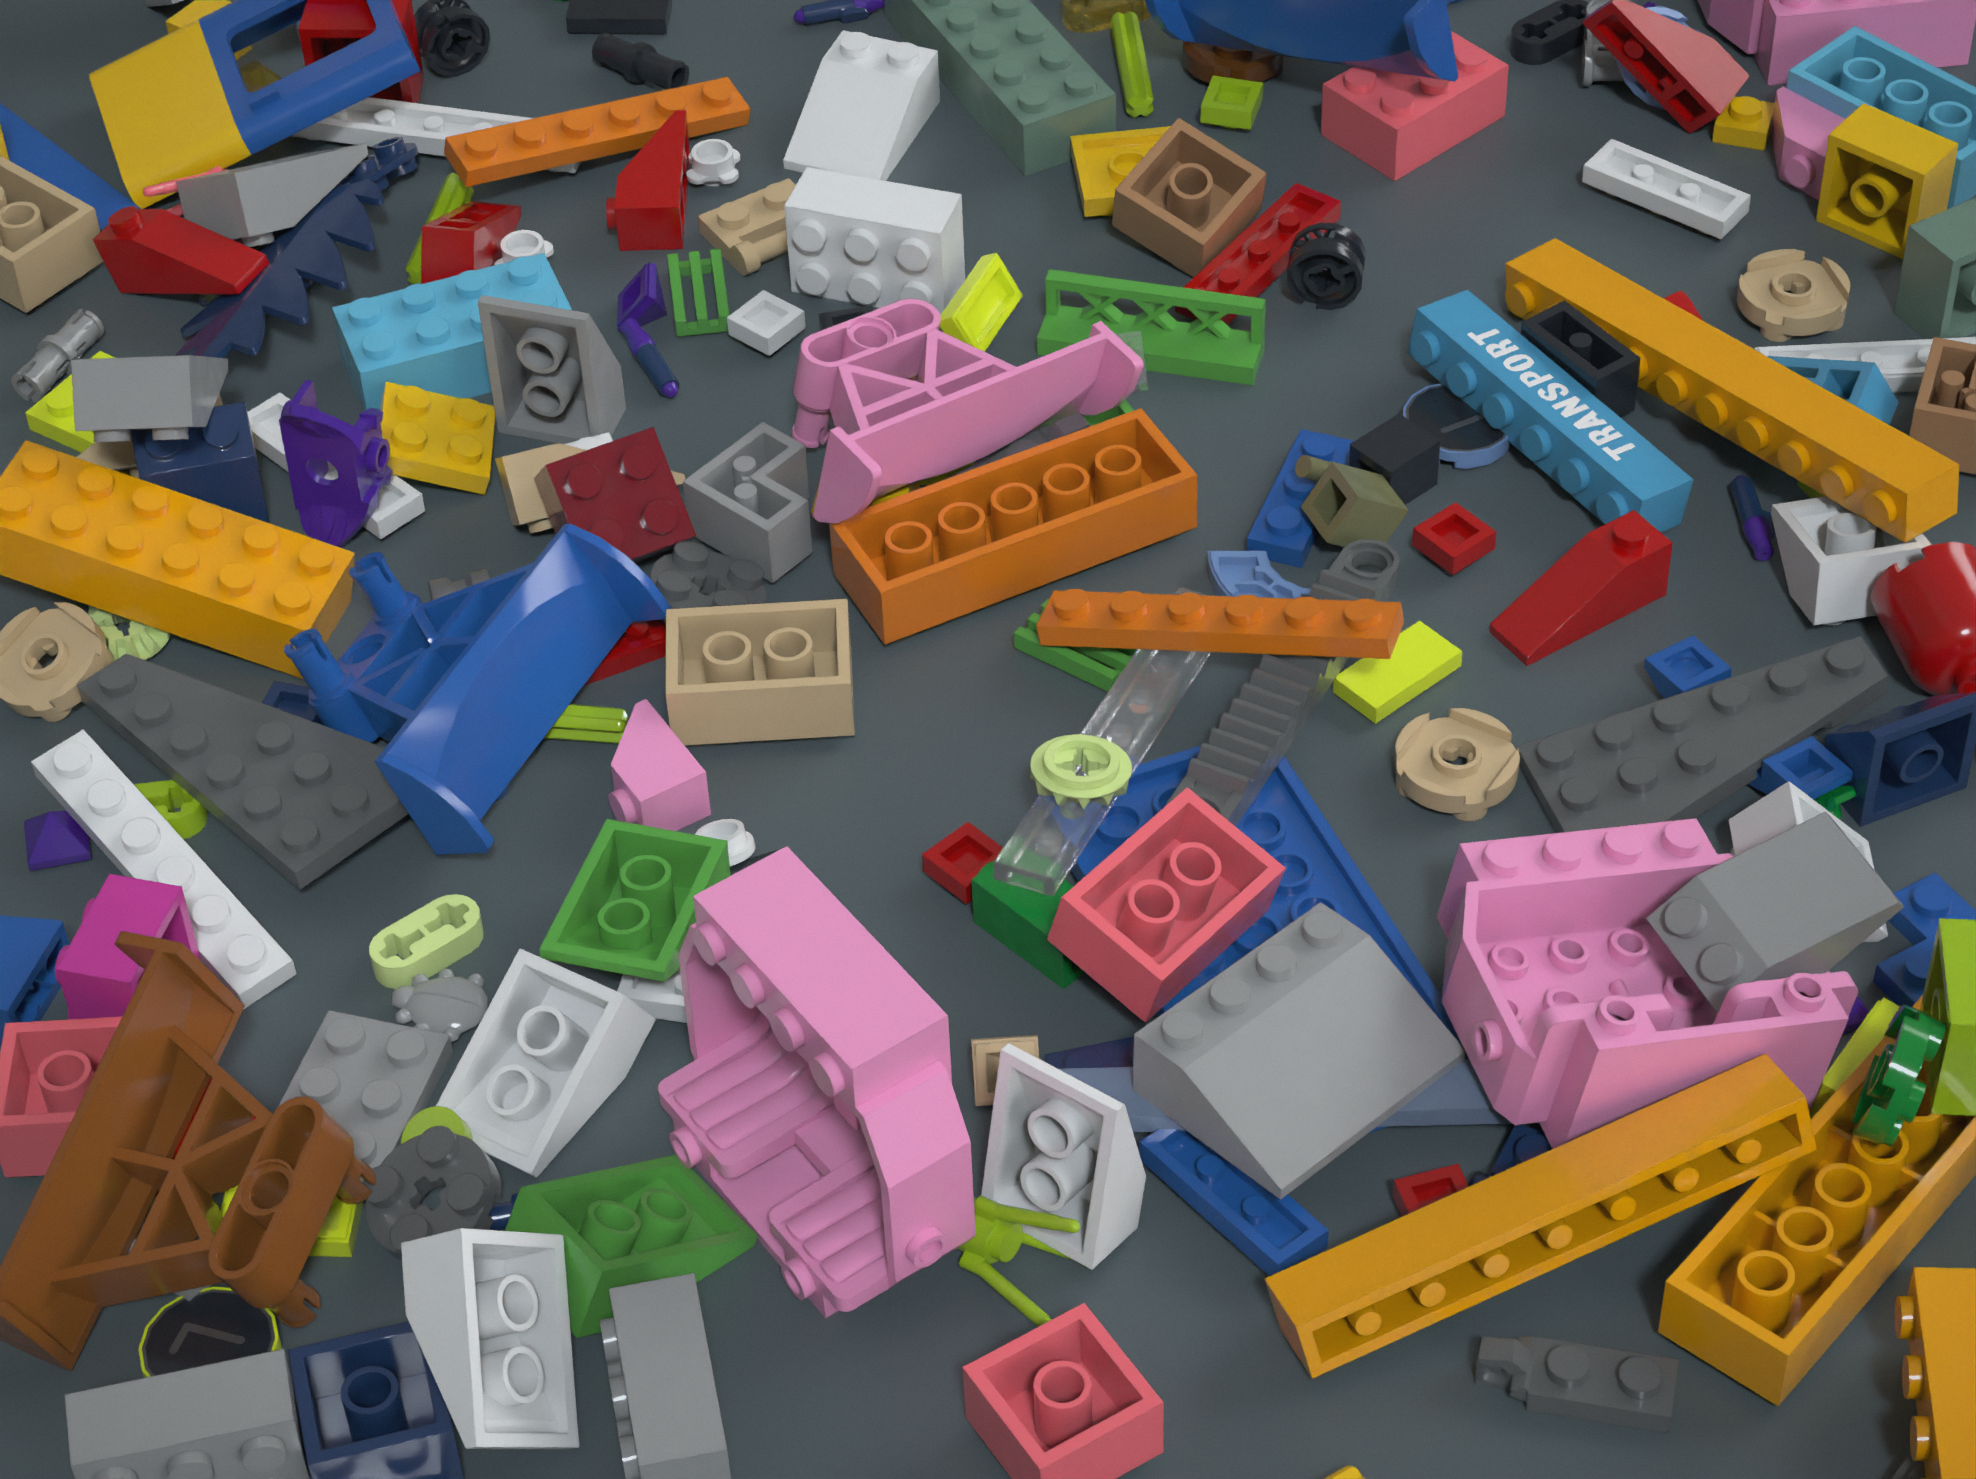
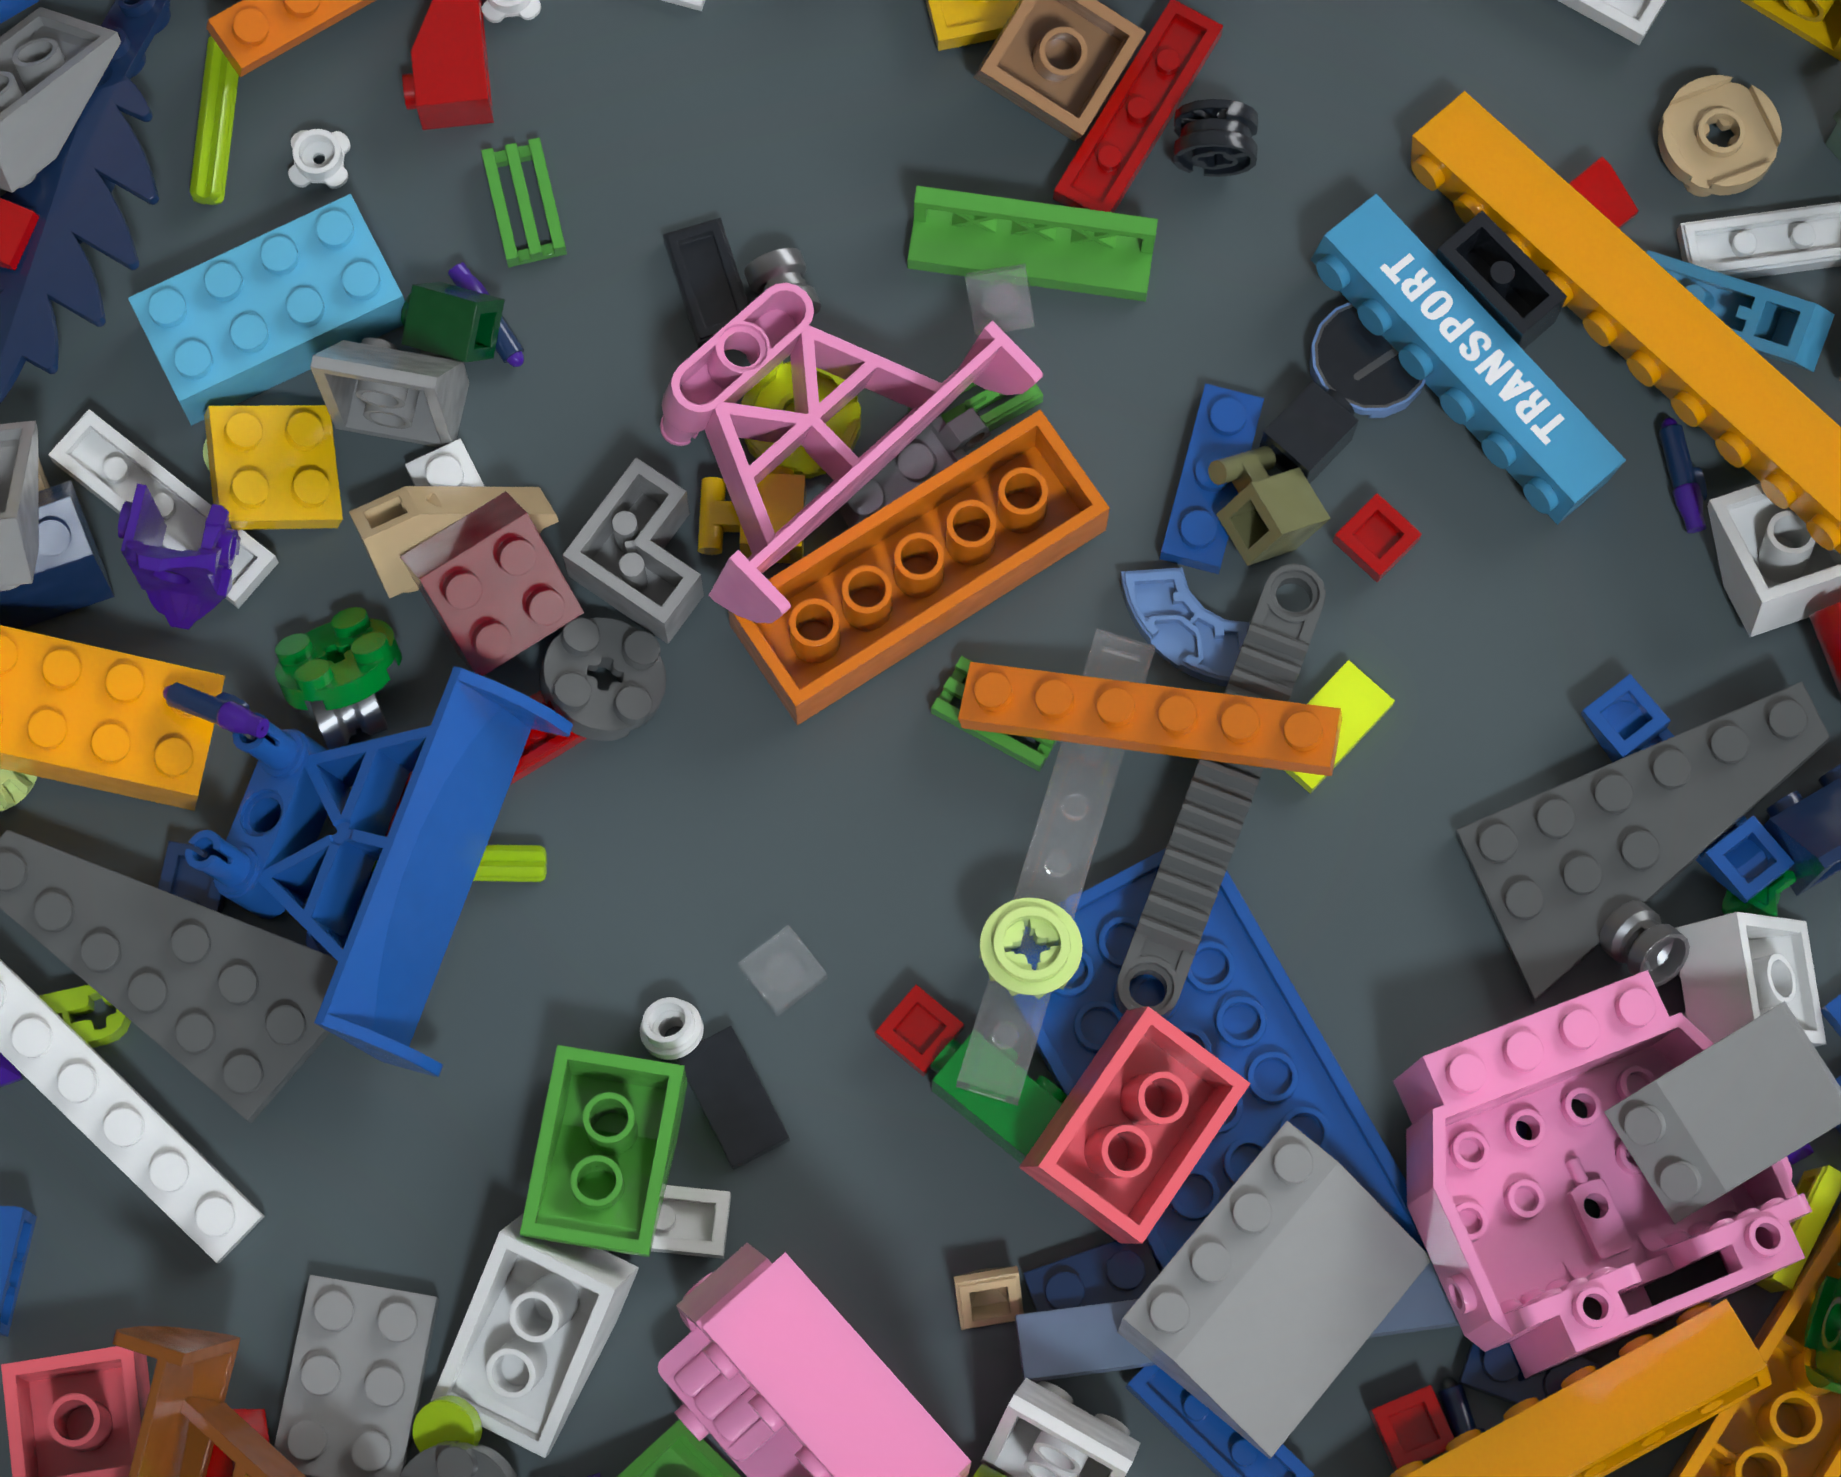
camera: 10 degrees left, 30 degrees up
(97, 974) = (104, 1264): dark pink brick -> none
(347, 549) = (224, 709): none -> piece
(426, 940) = (379, 1159): yellowish green beam -> none
(442, 1004) = (420, 1249): light grey piece -> none
(466, 239) = (255, 153): red slope -> none
(479, 552) = (337, 661): none -> green plate
(633, 342) = (451, 321): none -> dark green brick
(642, 298) = (460, 224): dark purple slope -> none
(656, 775) = (587, 944): bright pink slope -> none
(749, 227) = (575, 77): tan plate -> none
(759, 672) = (678, 801): tan brick -> none
(766, 322) = (607, 254): white plate -> none
(840, 811) = (783, 970): none -> clear plate
(873, 240) = (716, 146): white brick -> none
(981, 303) = (841, 222): neon yellow tile -> none
(1451, 788) = (1432, 844): tan plate -> none
(1588, 588) = (1514, 609): red slope -> none
(1715, 813) = (1638, 938): none -> flat silver wheel

